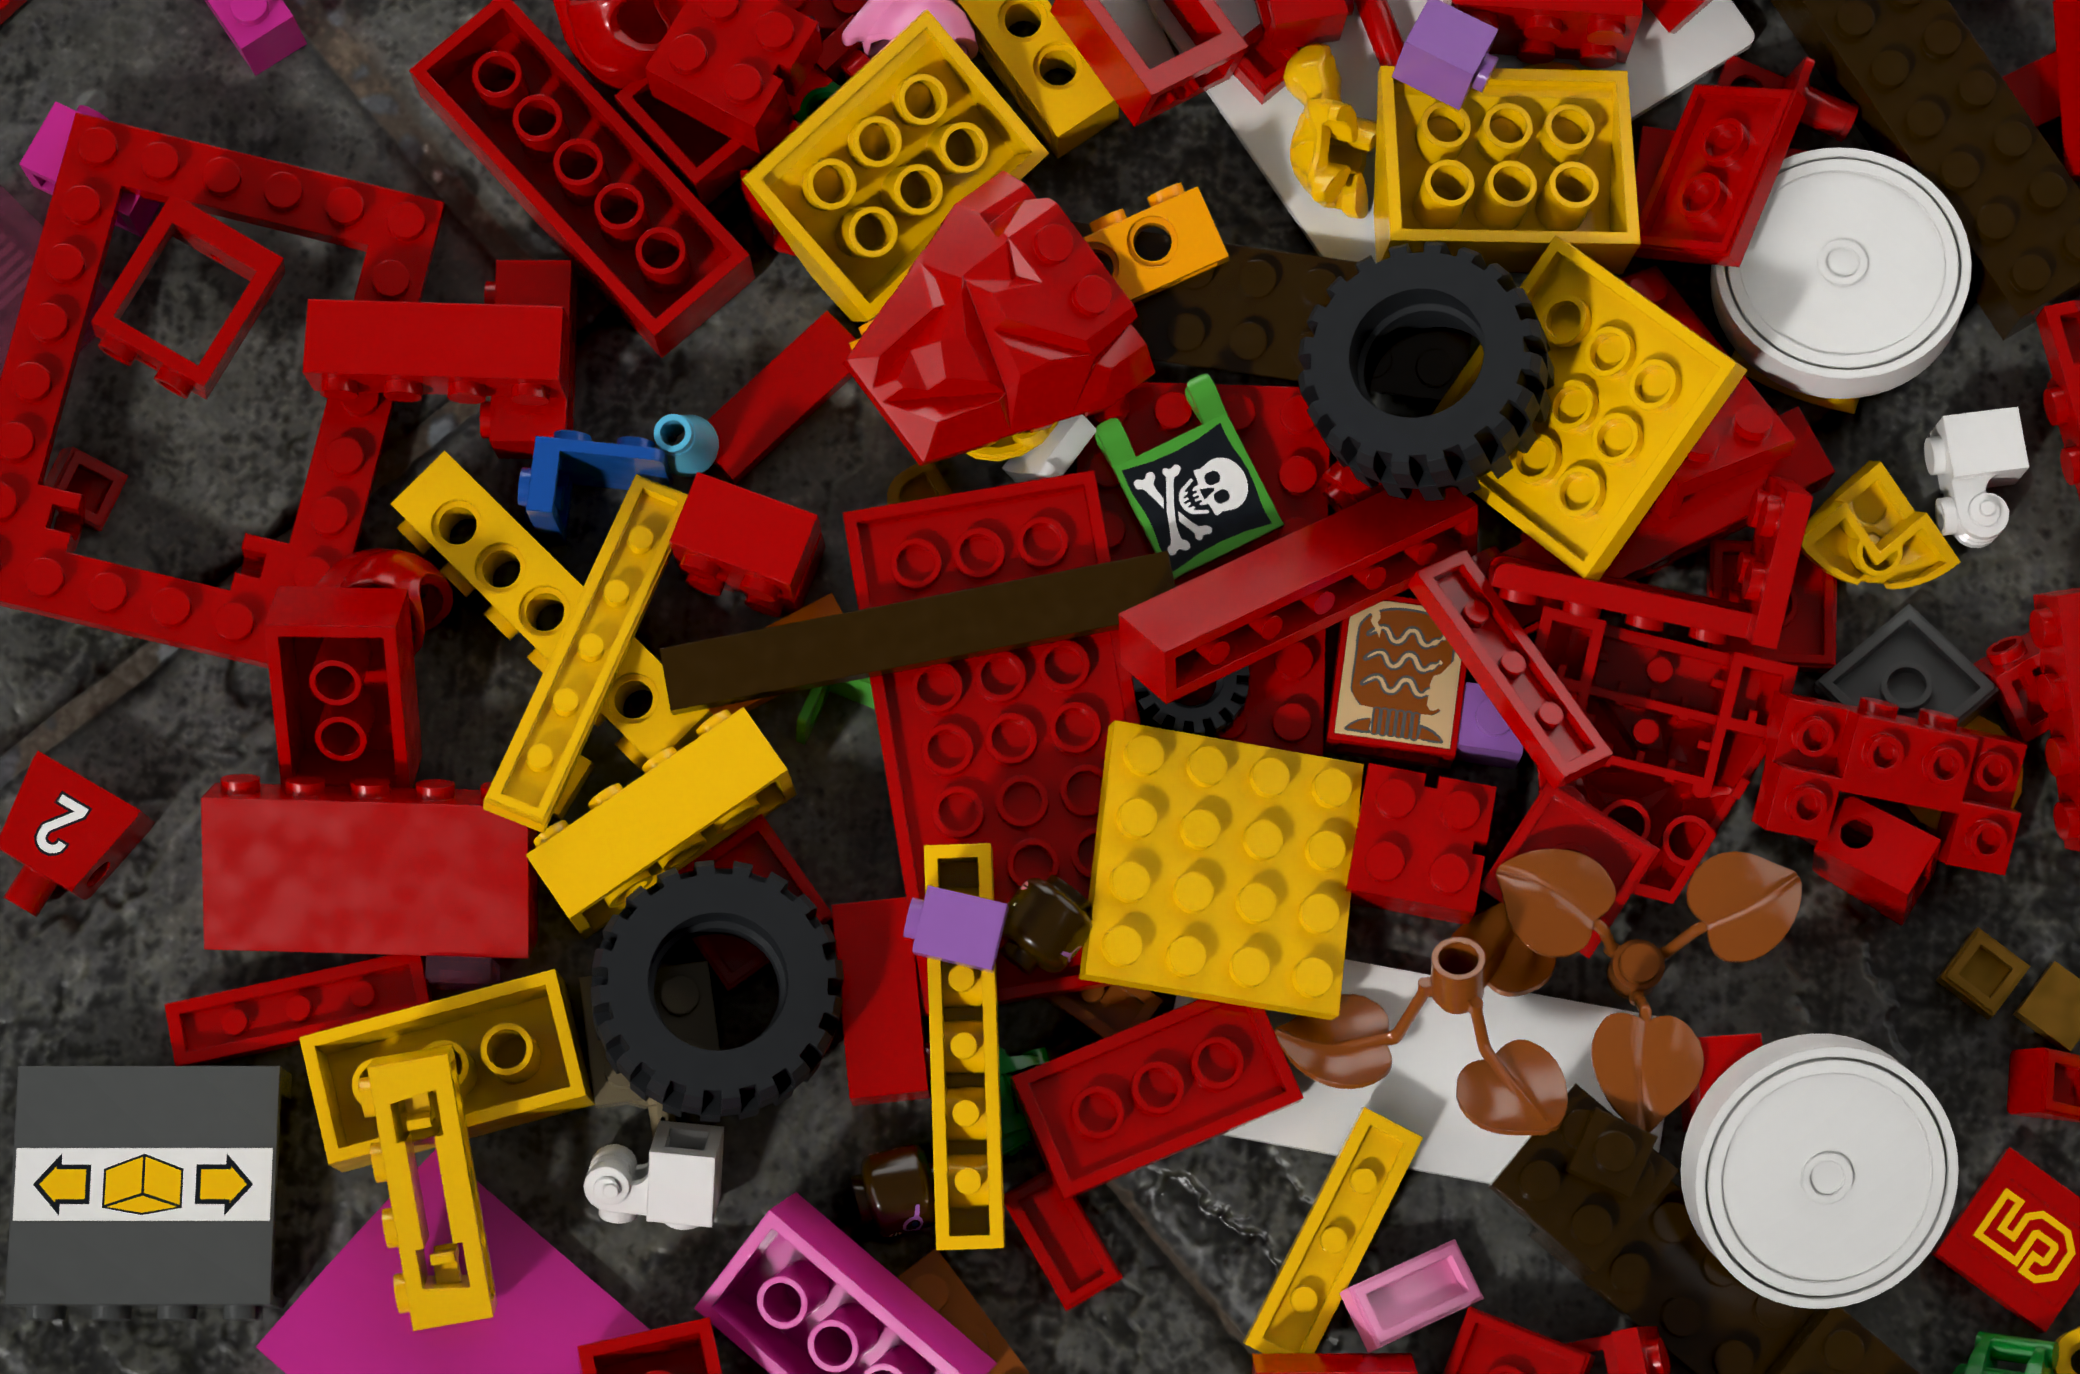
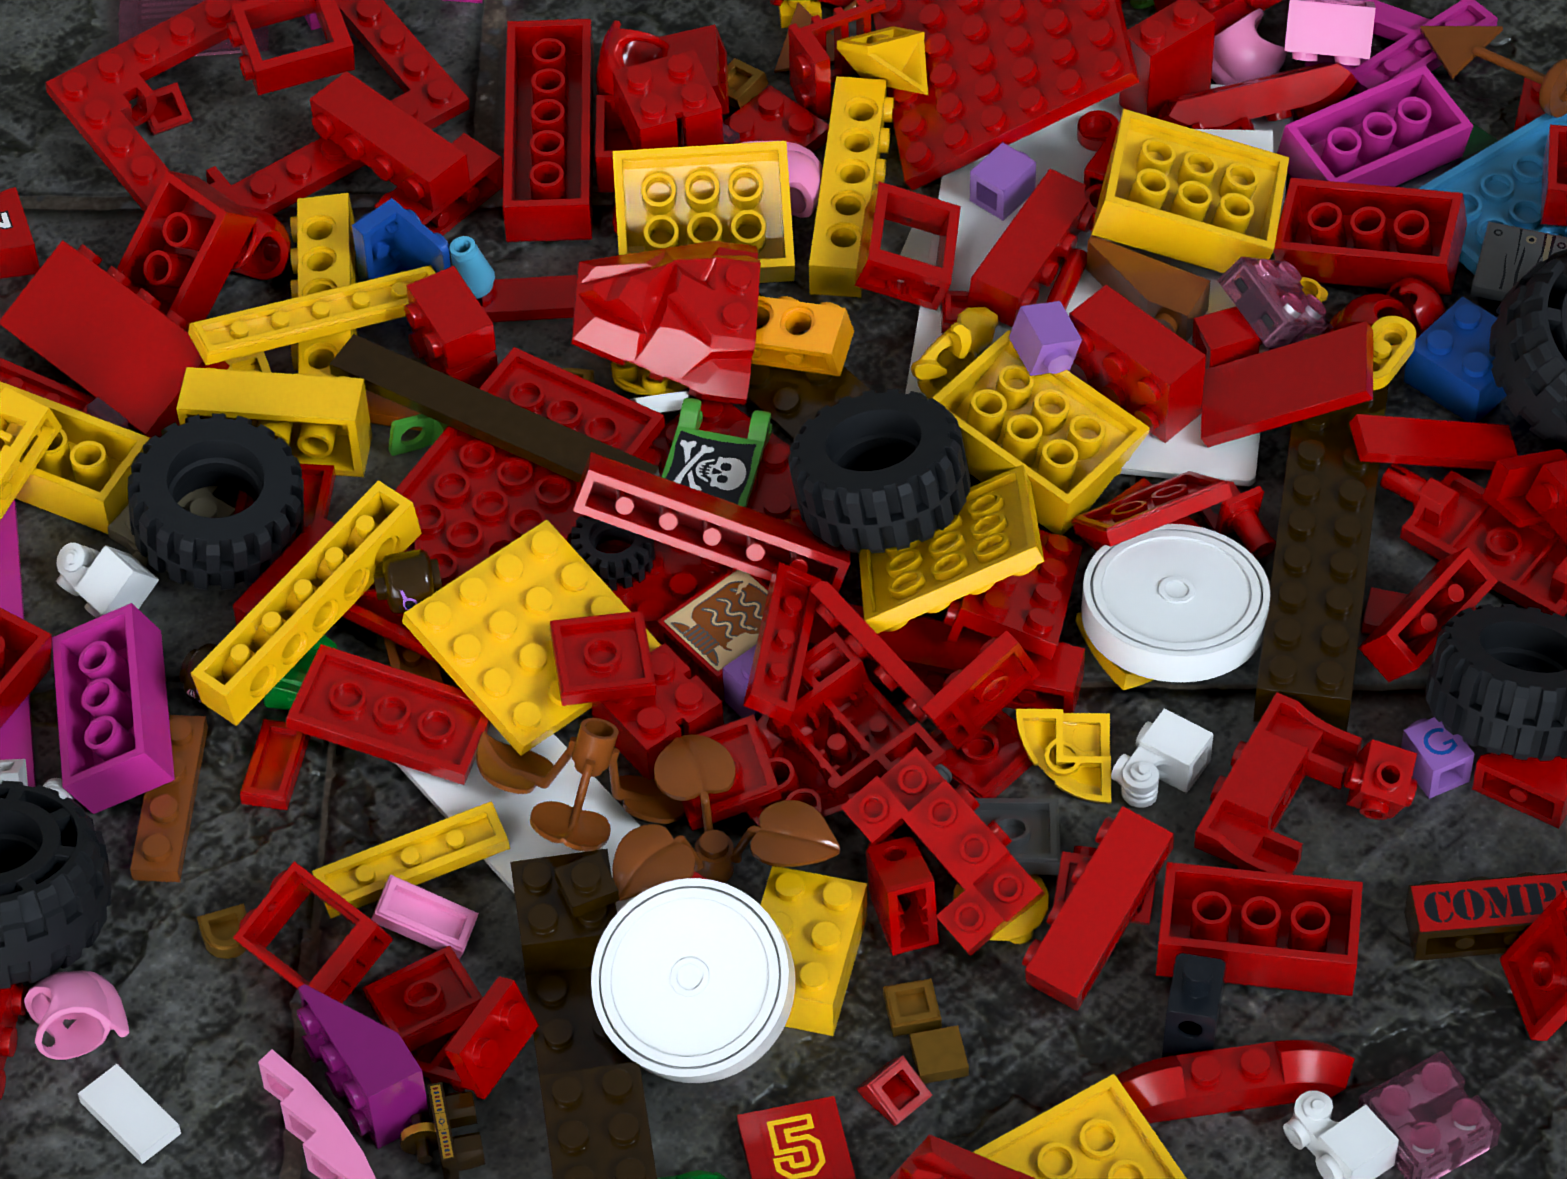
camera: 40 degrees right, 25 degrees down
(956, 928) = (352, 519): medium lavender brick -> none
(1339, 846) = (602, 658): none -> red tile
(1836, 981) = (823, 930): none -> yellow brick

